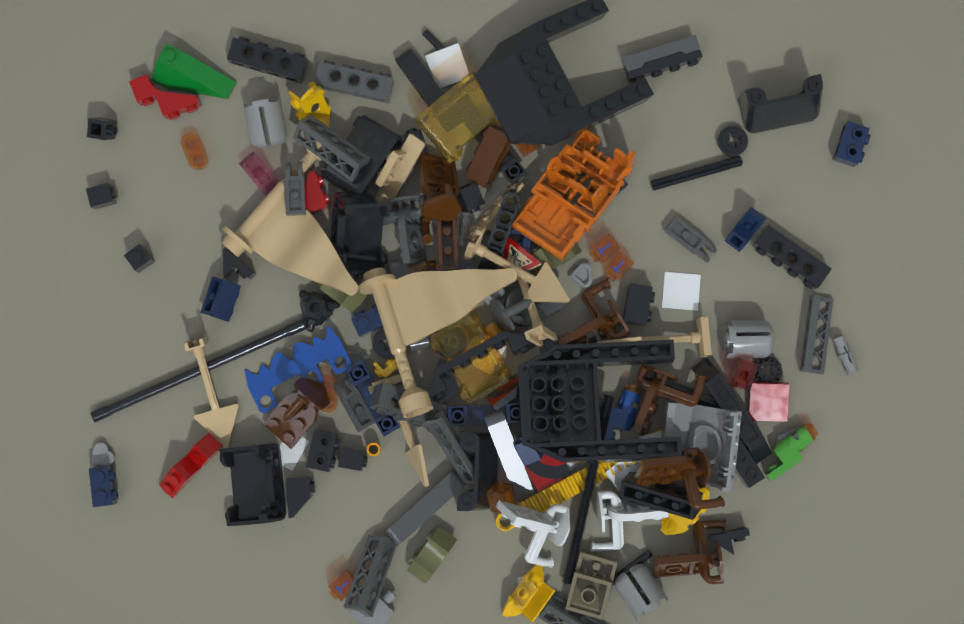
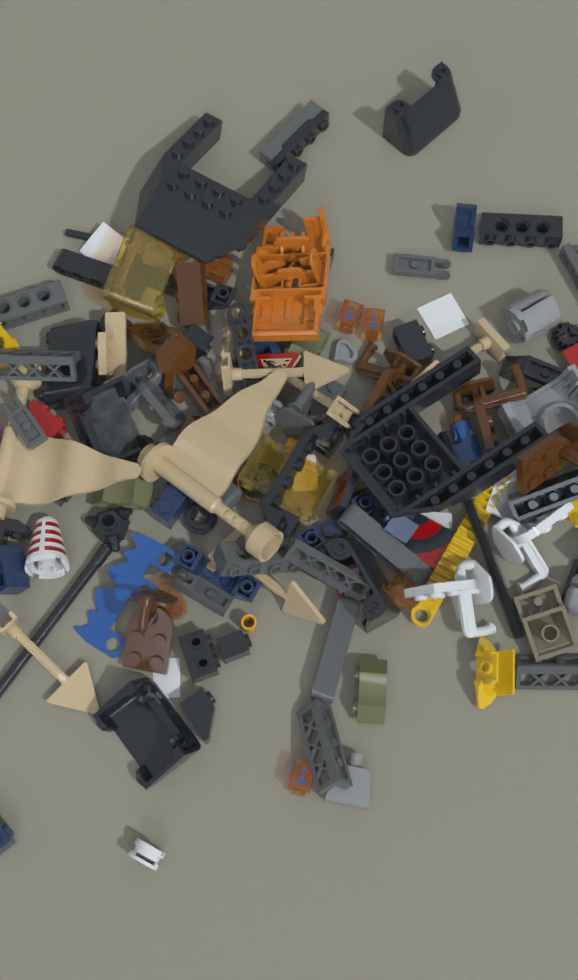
camera: 30 degrees left, 15 degrees down
(189, 465) = (69, 755): red arch -> none
(201, 571) = (148, 852): none -> white wheel
(257, 300) = (47, 551): none -> white cone
(391, 367) = (217, 534): yellow bracket -> none
(696, 173) = (388, 211): black axle -> none
(740, 145) = (401, 161): black gear -> none
(742, 373) = (549, 344): clear red brick -> none
(851, 144) = (505, 114): dark blue brick -> none

